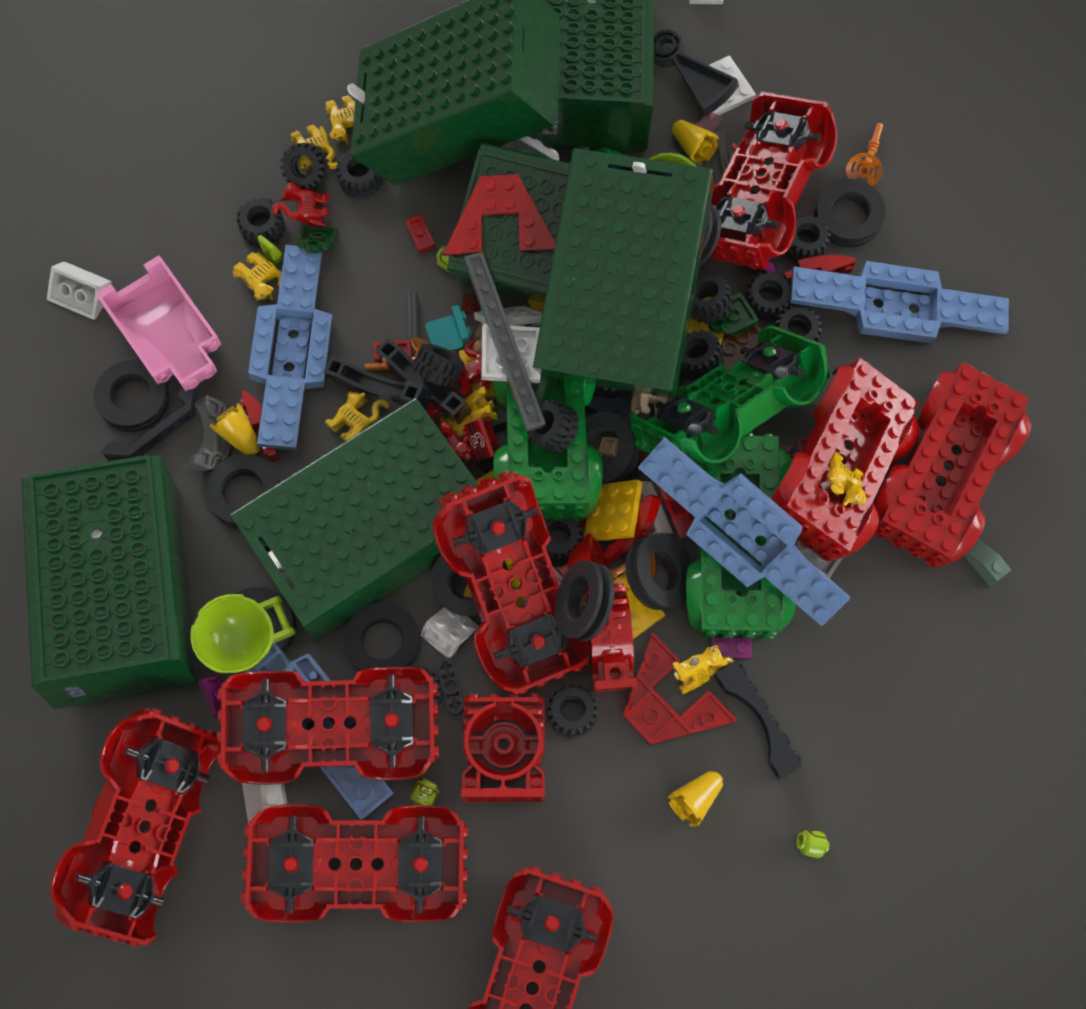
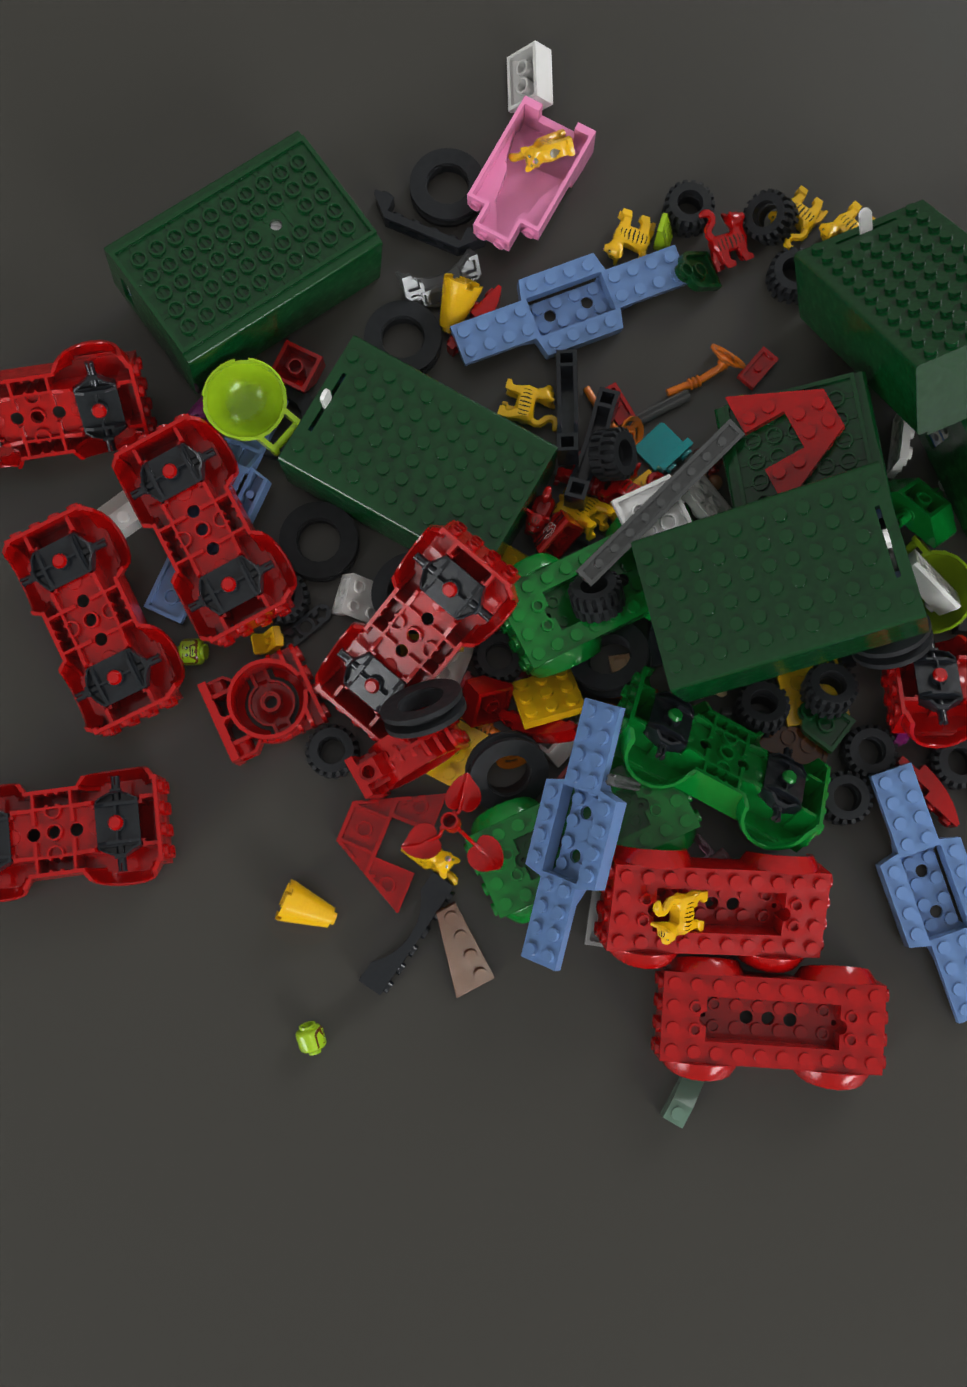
camera: 65 degrees right, 10 degrees up
(149, 301) = (545, 149): none -> yellow animal
(218, 582) = (298, 366): none -> red slope
(401, 253) = (725, 360): none -> orange dish
(448, 722) = (268, 641): none -> yellow bracket
(665, 613) = (423, 838): none -> red plant
(720, 471) = (622, 782): none -> dark grey axle
(734, 647) = (468, 879): magenta plate -> none
(793, 680) = (463, 954): none -> reddish brown wing

